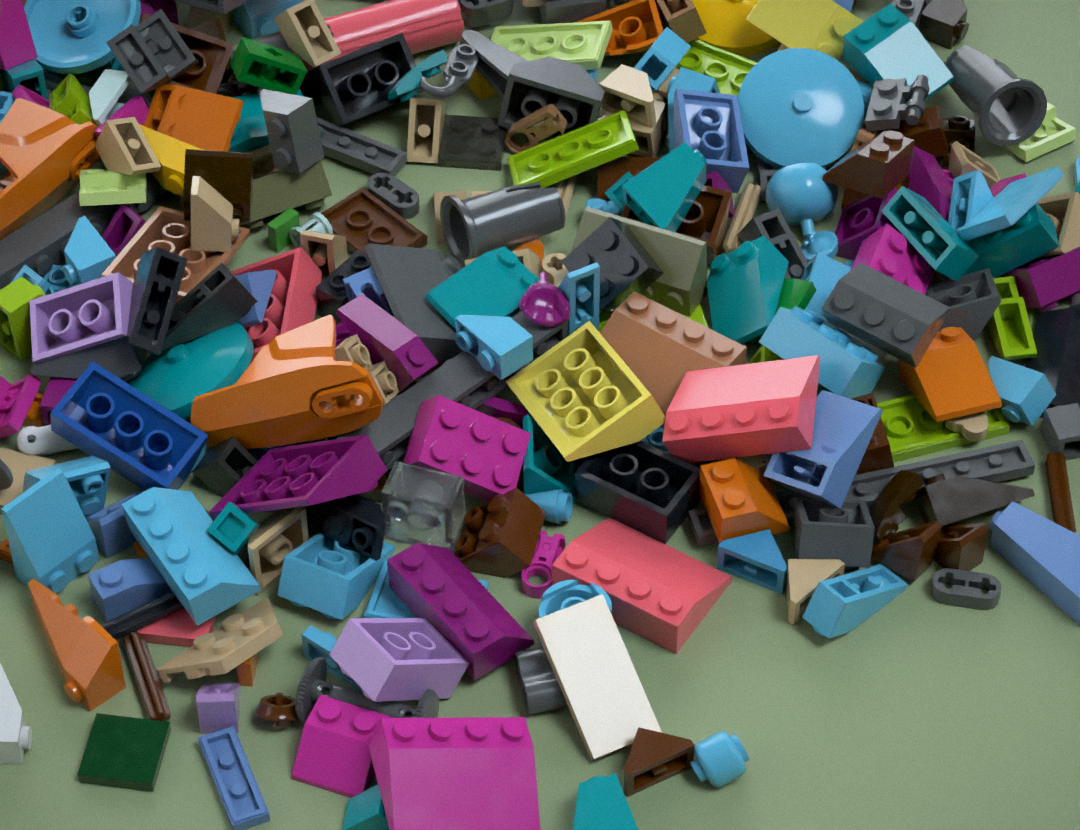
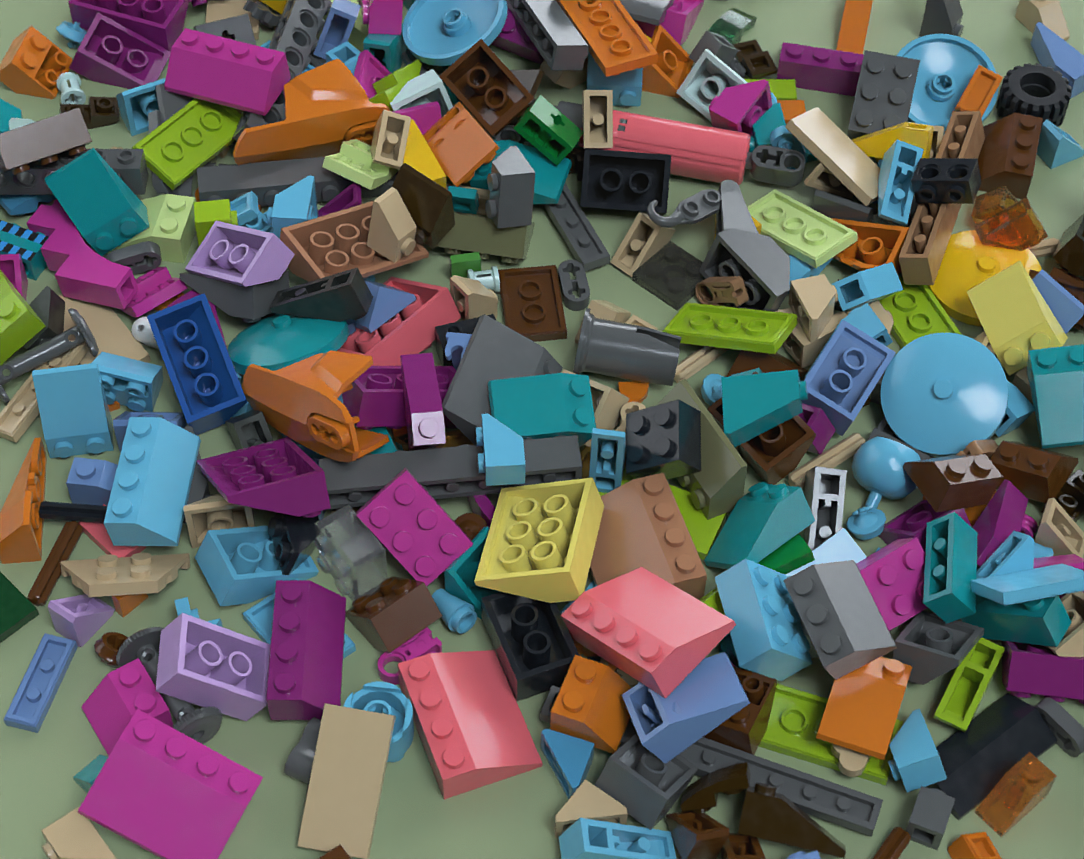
camera: 35 degrees right, 5 degrees up
(152, 52) = (465, 73): dark grey slope -> none
(154, 298) = (285, 272): black slope -> none
(233, 527) = (190, 484): teal tile -> none
(353, 350) = (387, 424): tan slope -> none
(410, 82) = (672, 195): teal slope -> none
(545, 303) = (570, 441): magenta piece -> none
(888, 103) = (1022, 432): dark grey plate -> none

